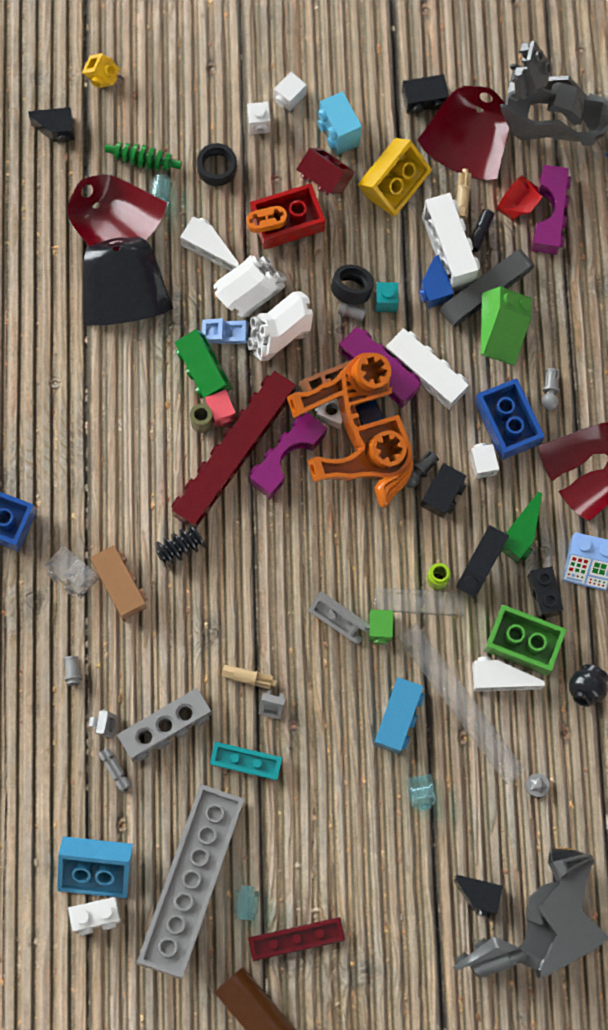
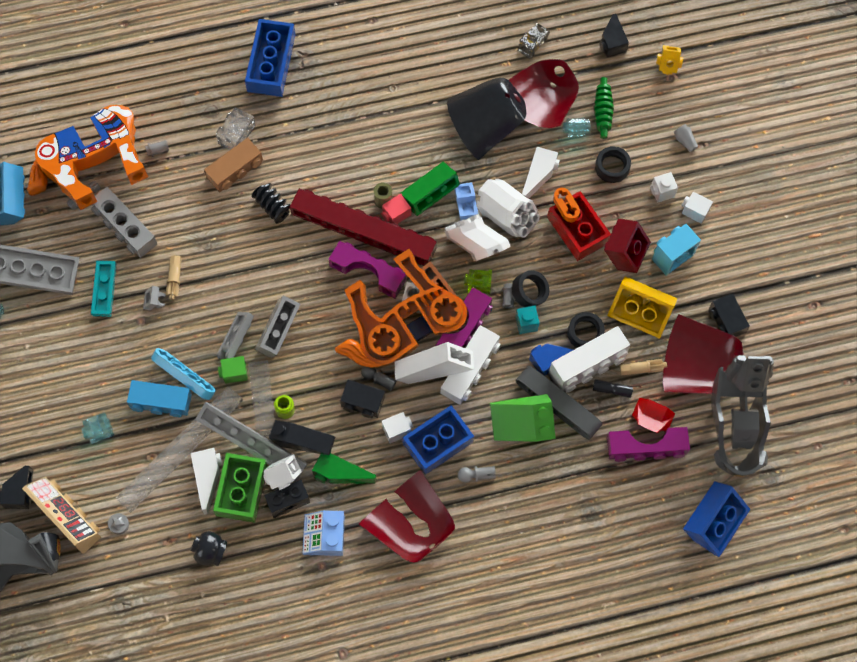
camera: 80 degrees right, 5 degrees down
(36, 211) = (532, 40): none -> clear smoke leg
(60, 779) = (64, 155): none -> animal
(104, 724) = (116, 179): light grey tile -> none
(201, 80) = (686, 137): none -> light grey cone
(332, 330) = (483, 285): none -> clear neon green brick
(340, 566) = (277, 326): none -> light grey brick
(374, 684) = (183, 374): none -> medium azure beam
(410, 225) = (584, 317): none -> black tyre
(426, 403) = (434, 363): none -> white slope
(472, 619) = (243, 436): none -> light grey plate
(519, 843) = (63, 514): none -> slope
(522, 587) = (282, 472): none -> white brick

